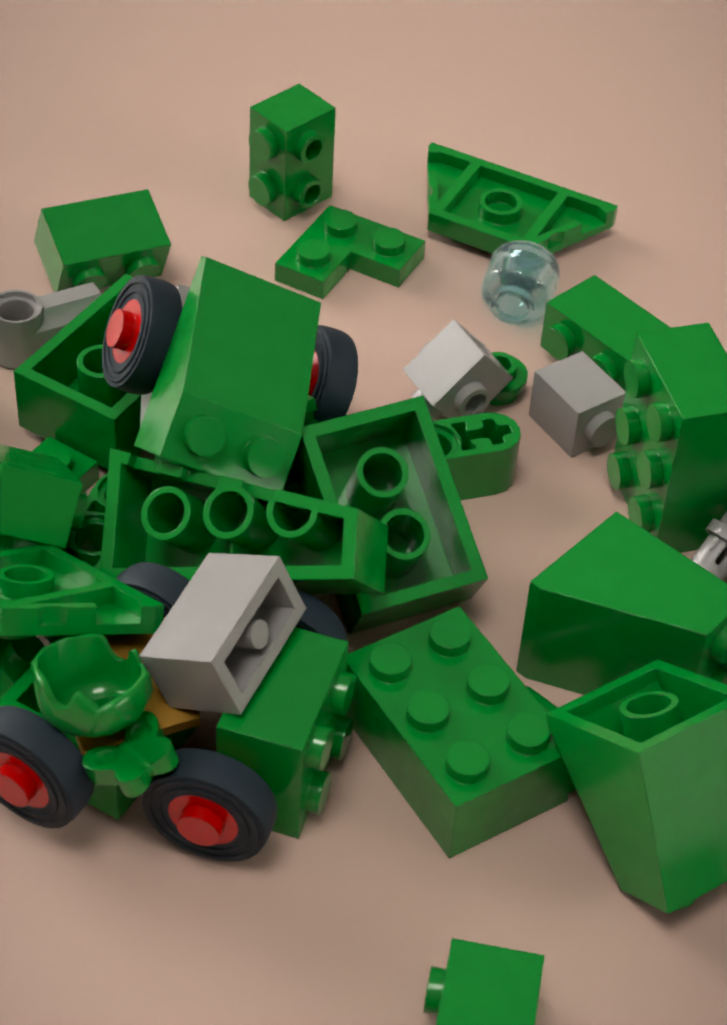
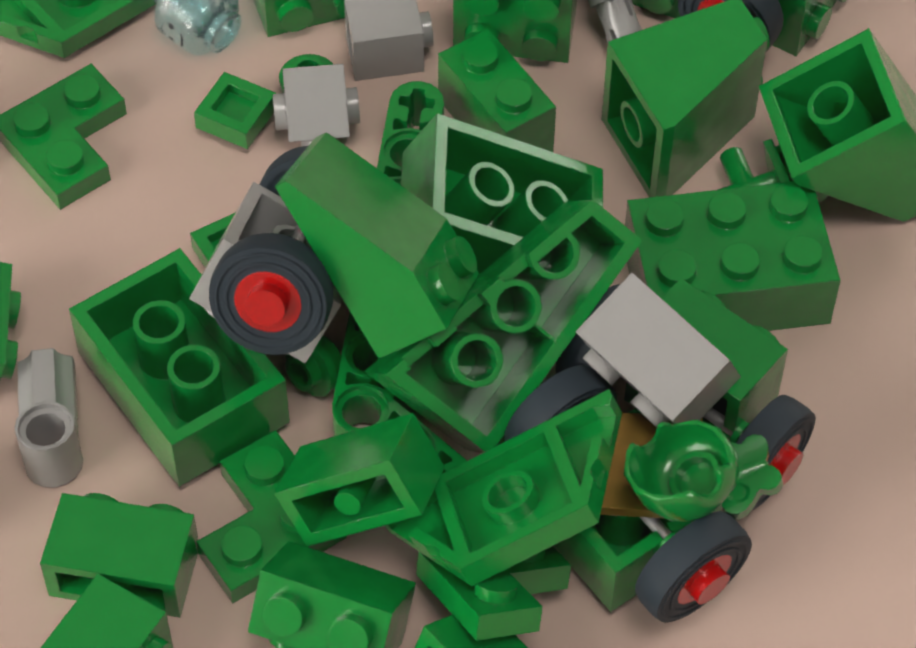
camera: 65 degrees left, 10 degrees up
(420, 328) = (235, 110): none -> green plate
(543, 499) = (493, 91): none -> green brick

